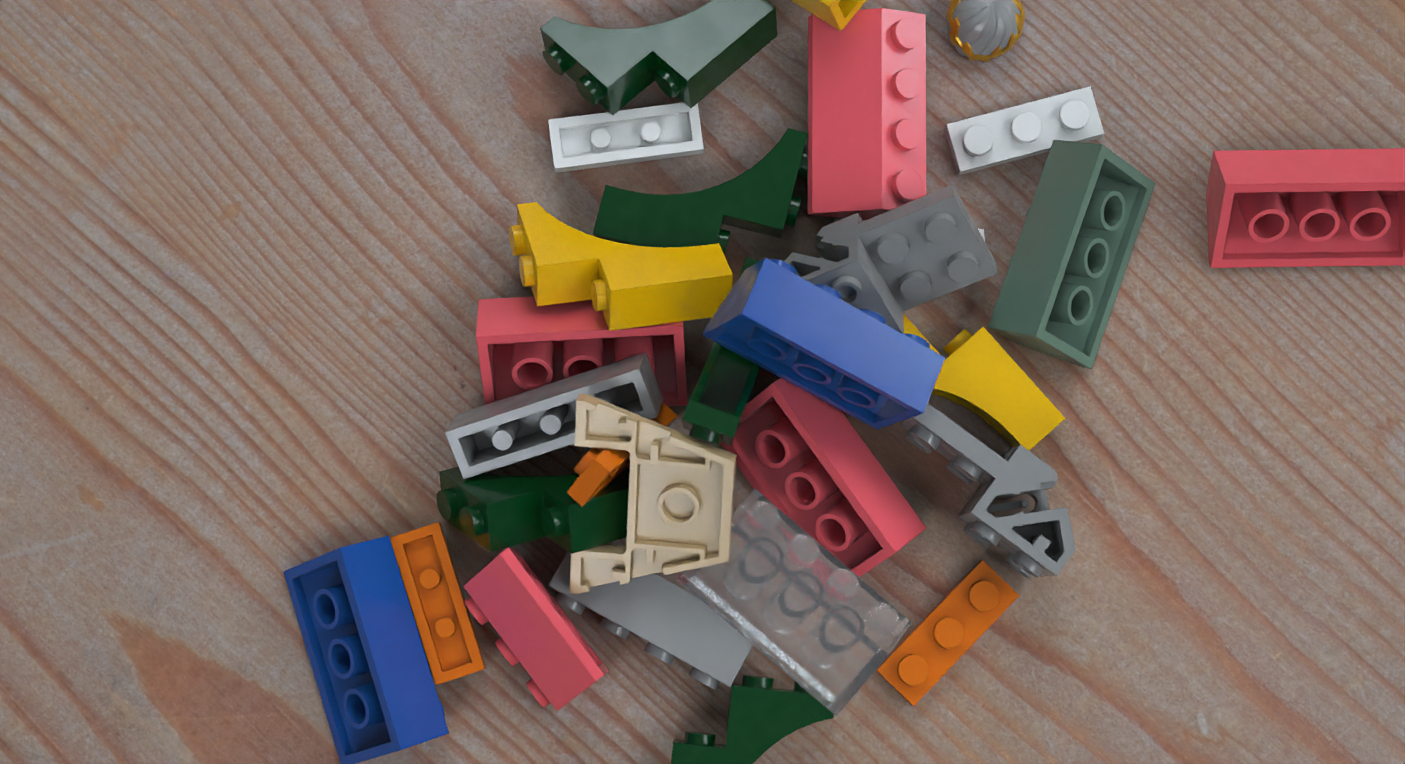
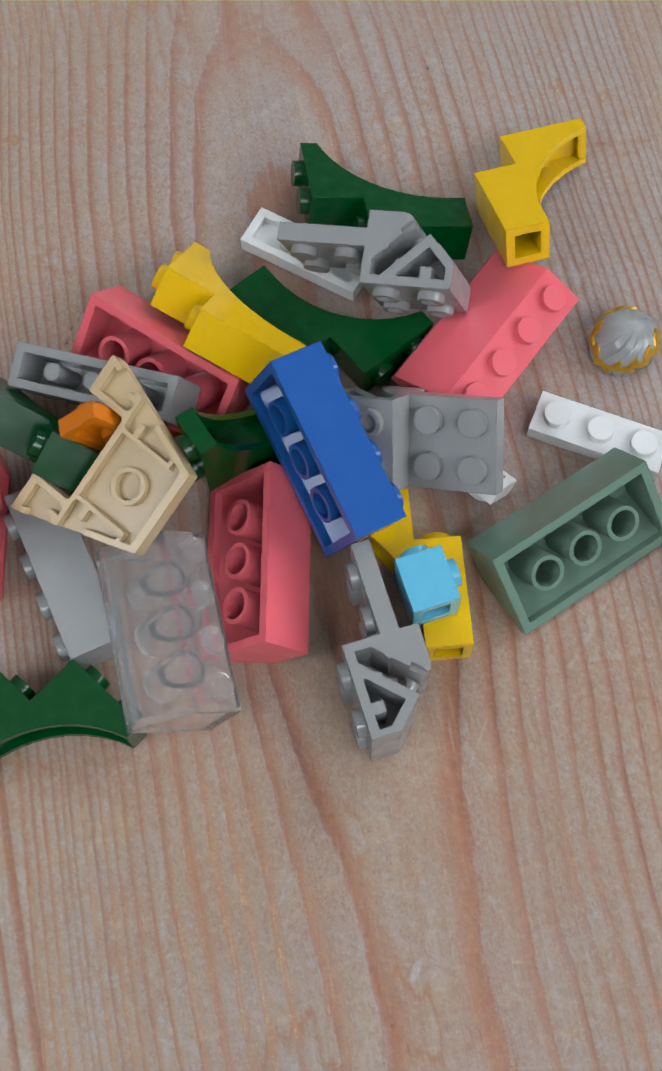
camera: 40 degrees right, 15 degrees down
(797, 105) = (391, 257): none -> light grey piece
(947, 632) = (266, 749): orange plate -> none
(994, 397) = (427, 583): none -> medium azure brick

